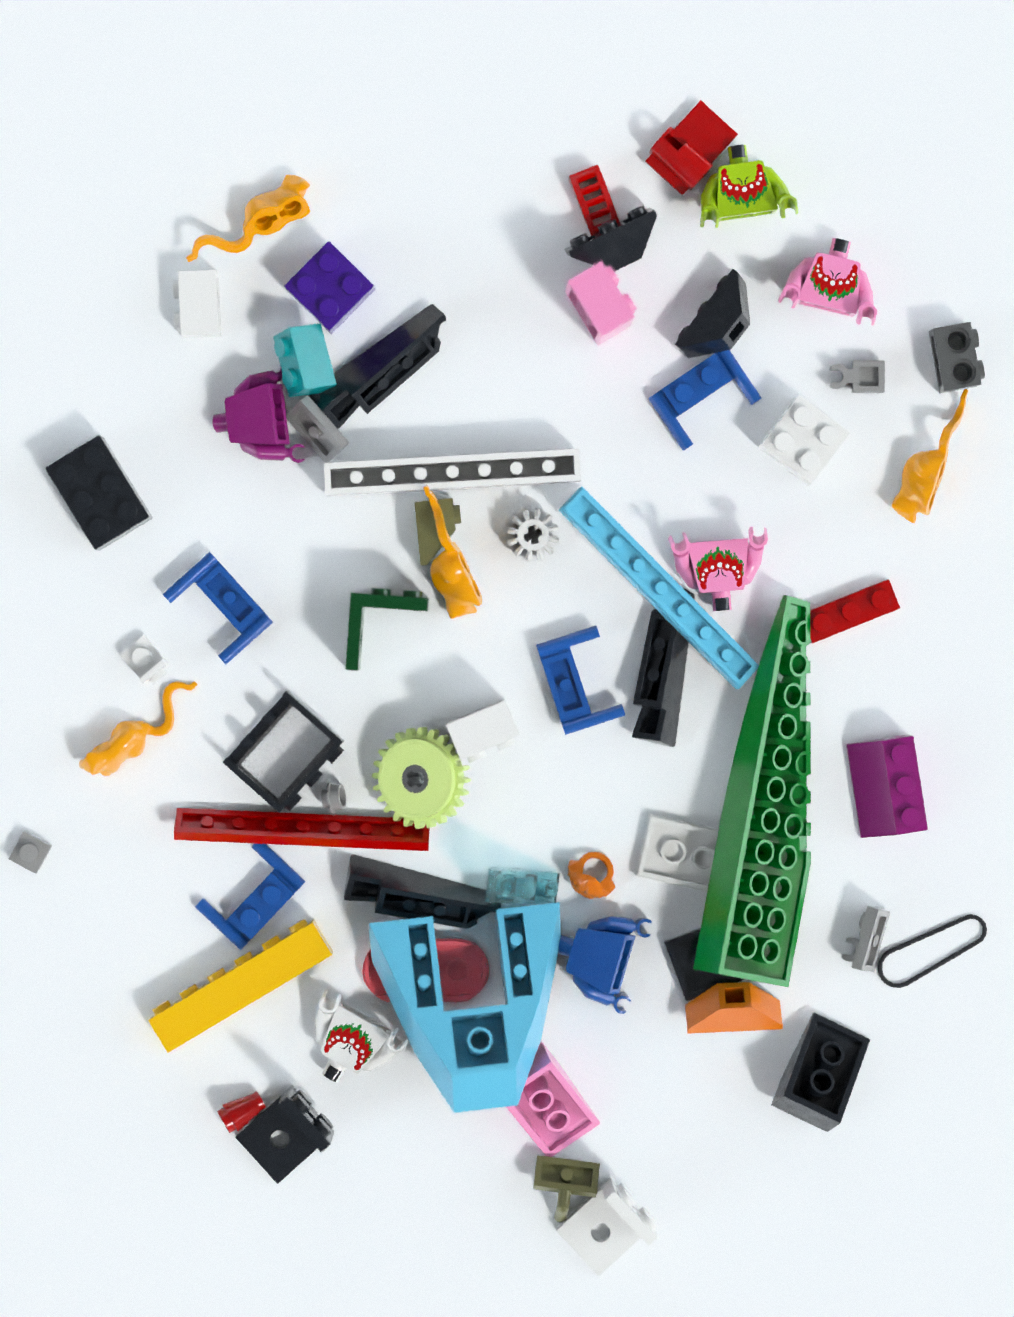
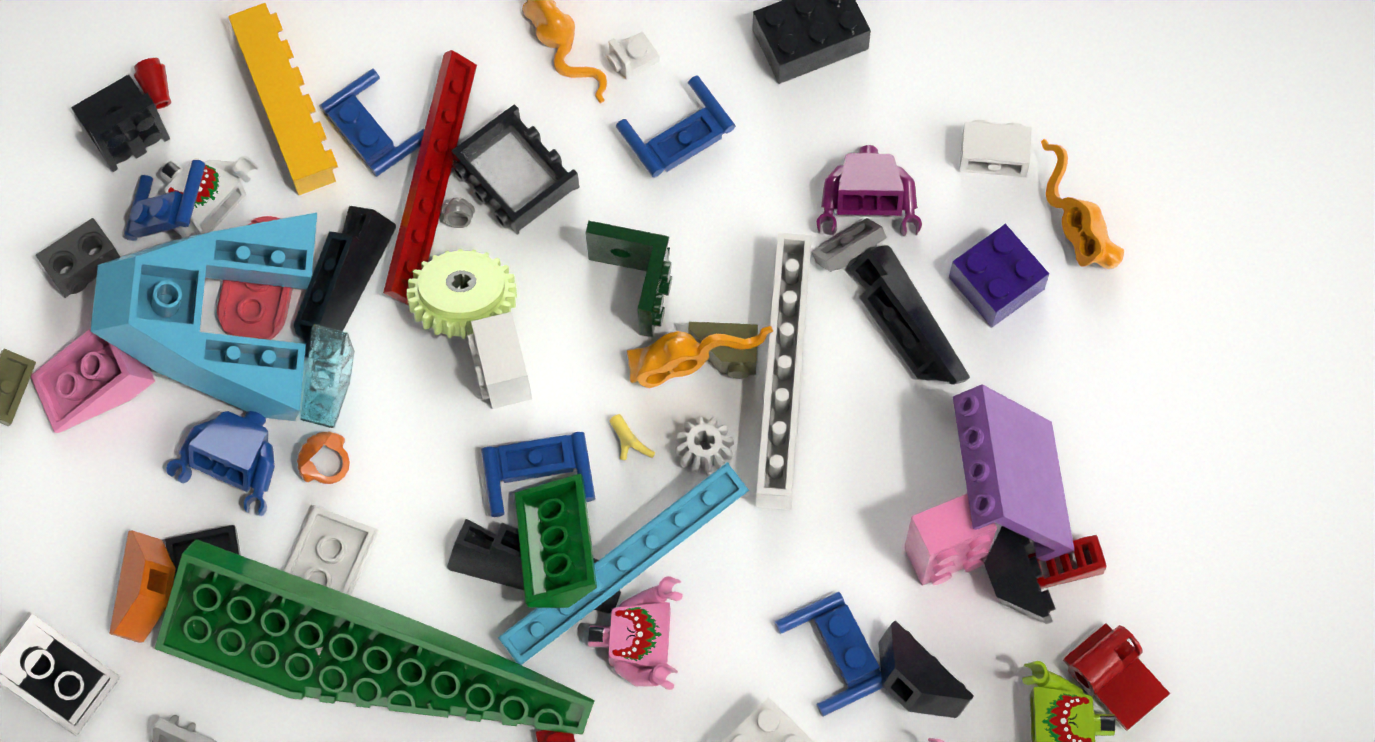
camera: 100 degrees right, 20 degrees down
(304, 360) = (923, 234): brick -> none
(383, 1070) = (163, 211): none -> blue plate
(424, 1144) = (74, 251): none -> dark grey brick
(533, 605) = (627, 438): none -> light yellow bar
(535, 253) = (1012, 470): none -> medium lavender panel
(649, 651) = (555, 543): none -> green slope

